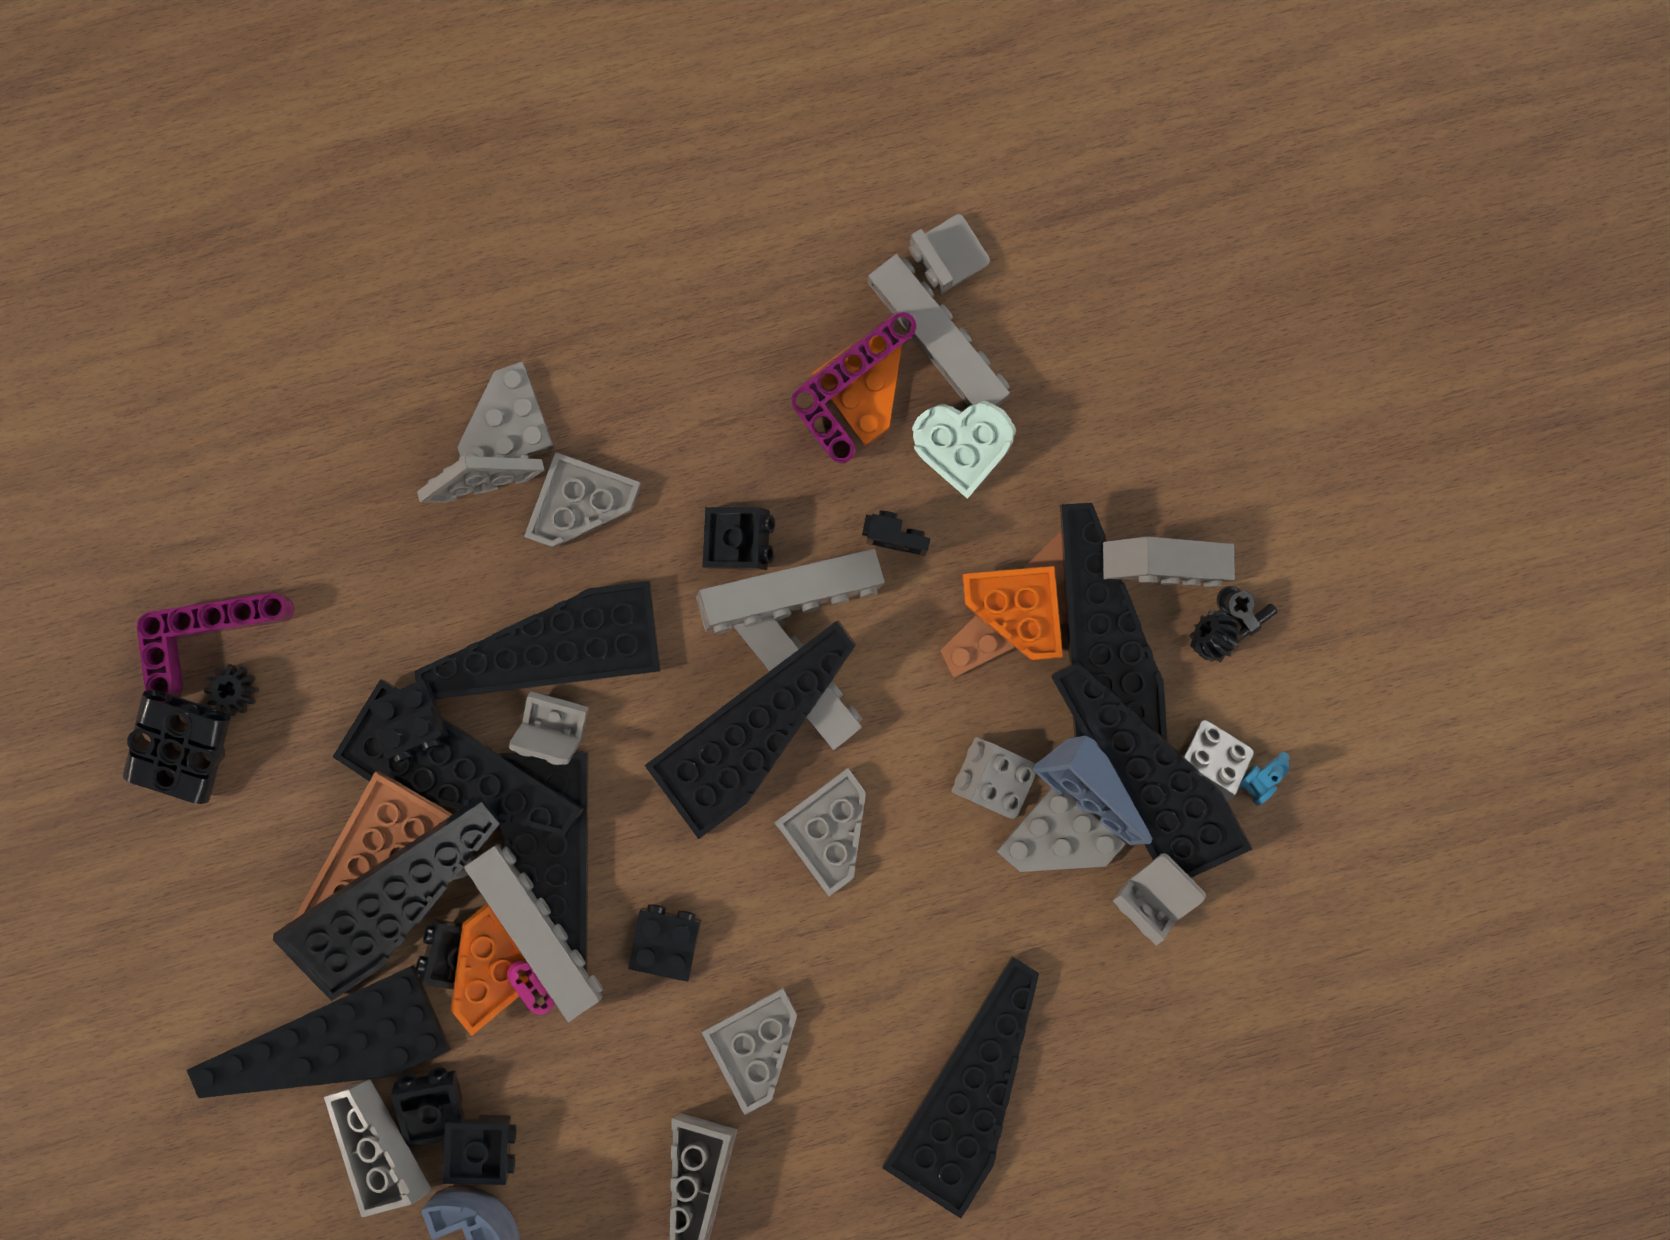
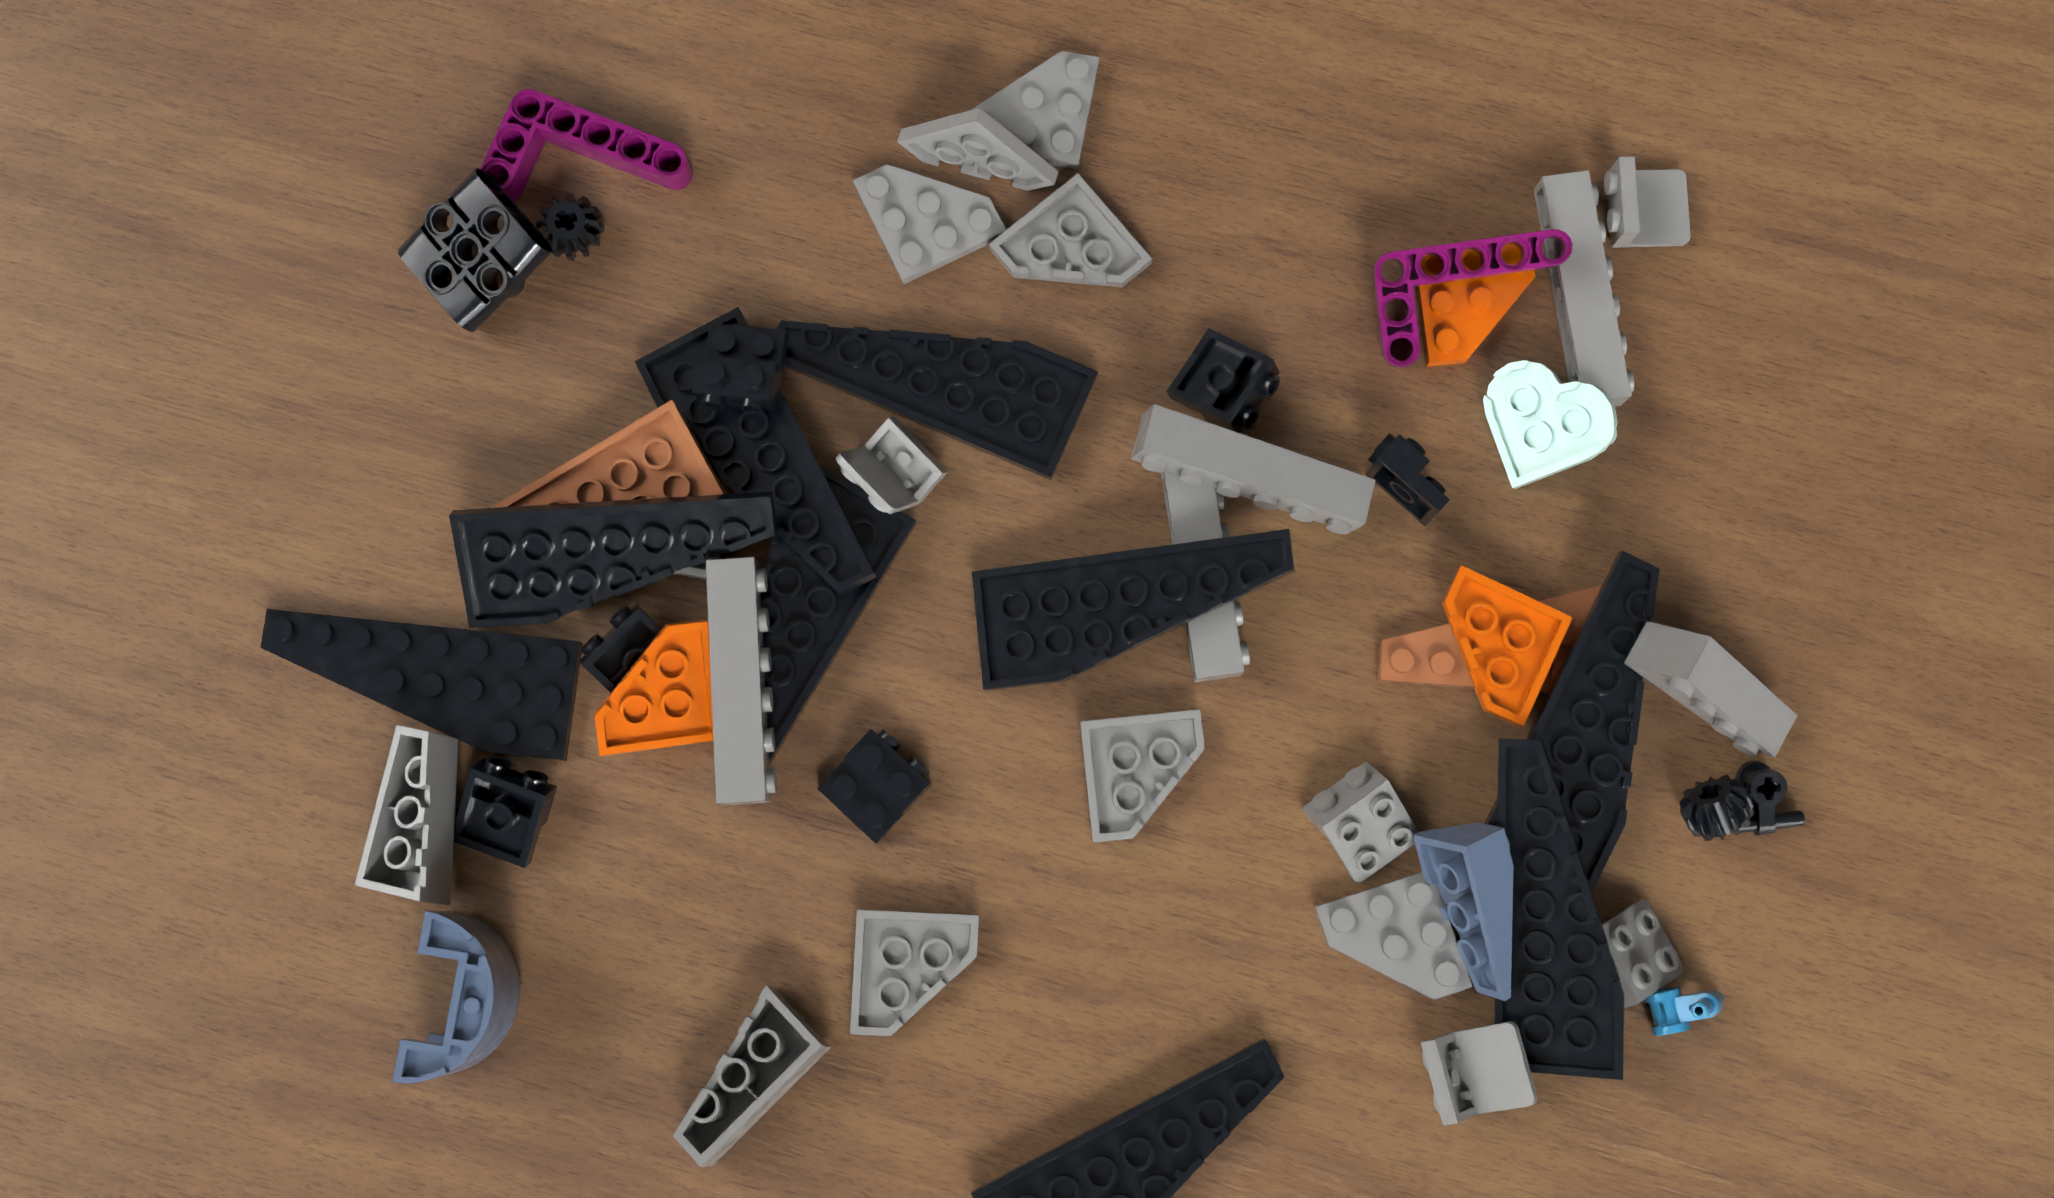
camera: 35 degrees right, 5 degrees down
(470, 542) = (925, 219): none -> light grey plate
(479, 1150) = (528, 890): black plate -> none
(525, 991) = (687, 742): dark pink beam -> none

